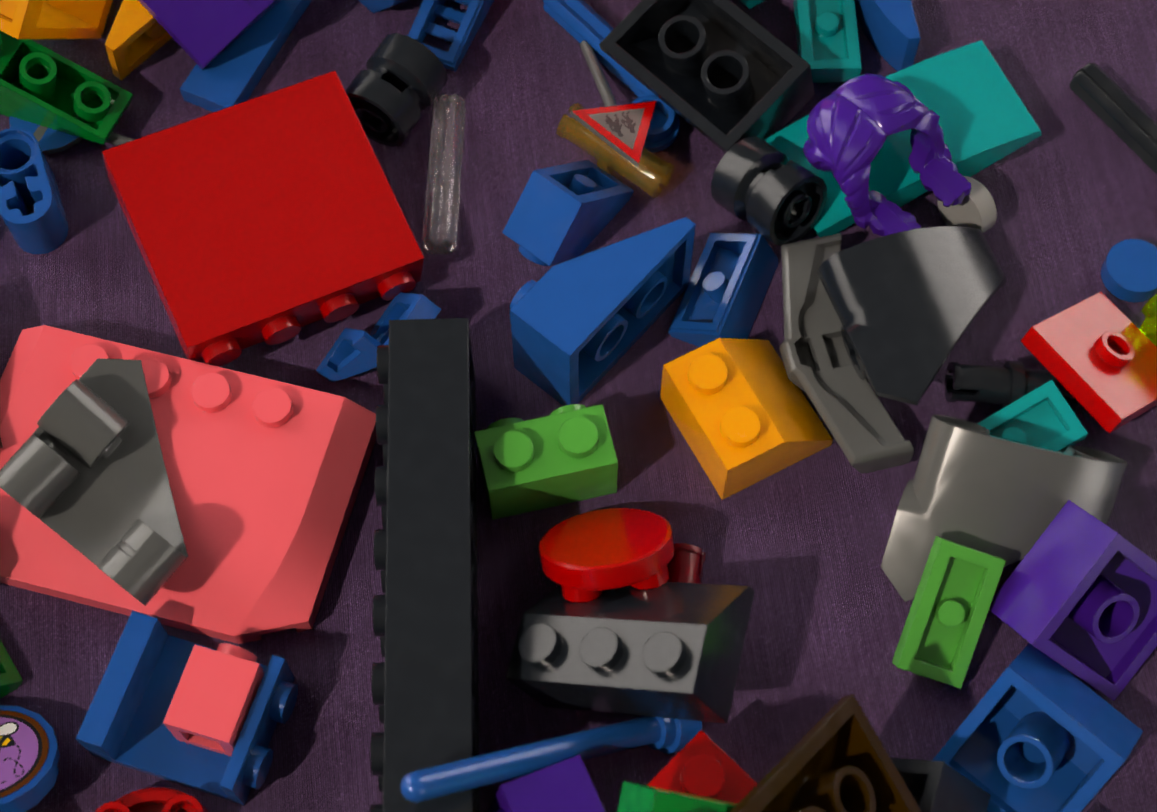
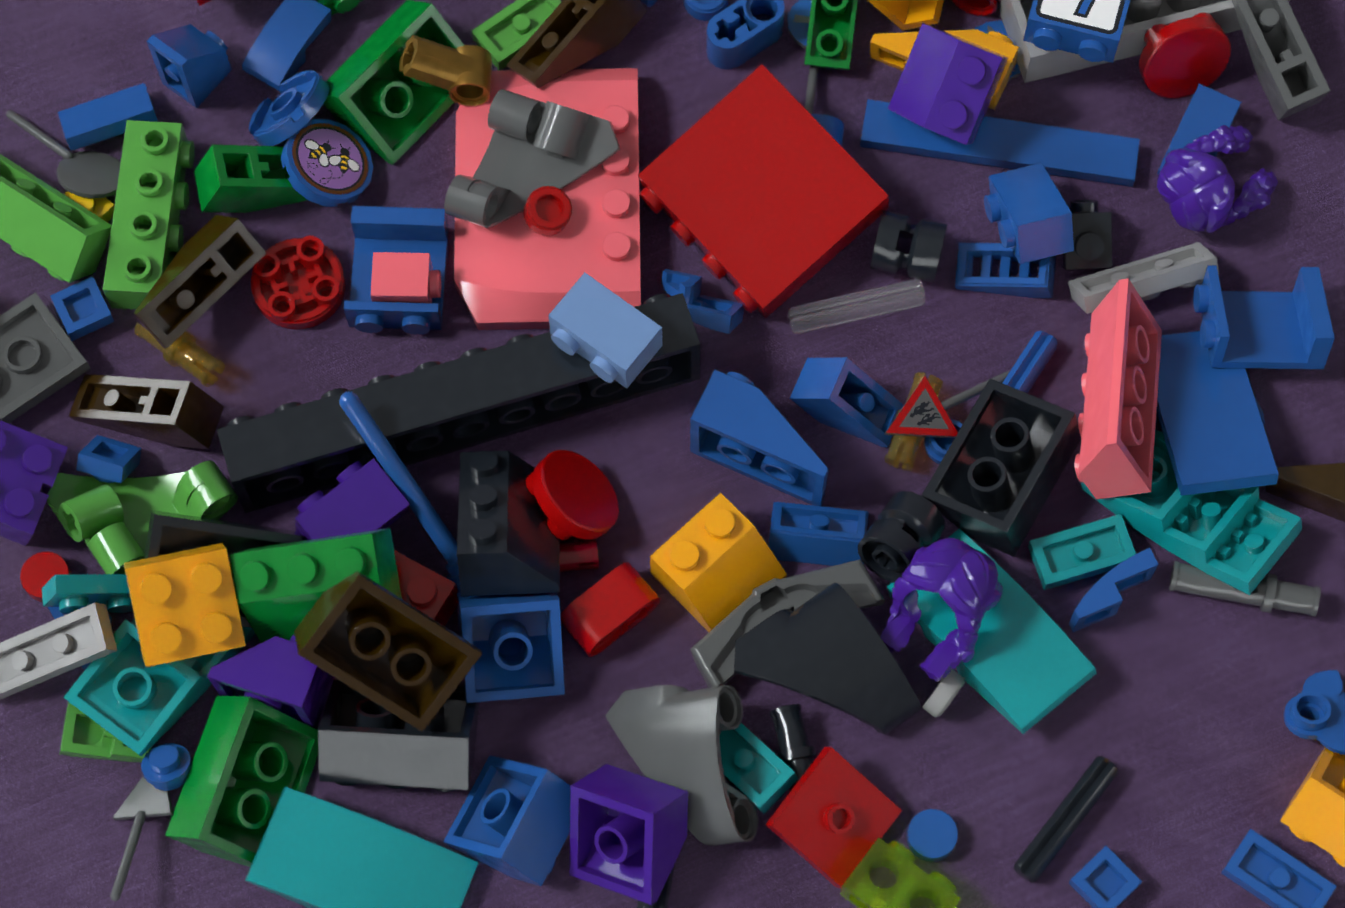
camera: 75 degrees right, 5 degrees up
(190, 475) = (547, 210): none -> red tile
(421, 415) = (604, 331): none -> medium blue brick
(547, 460) = (634, 440): bright green brick -> none
(769, 553) = (609, 609): none -> red beam
(790, 677) = (518, 645): none -> blue slope
(948, 612) = (594, 737): bright green plate -> none

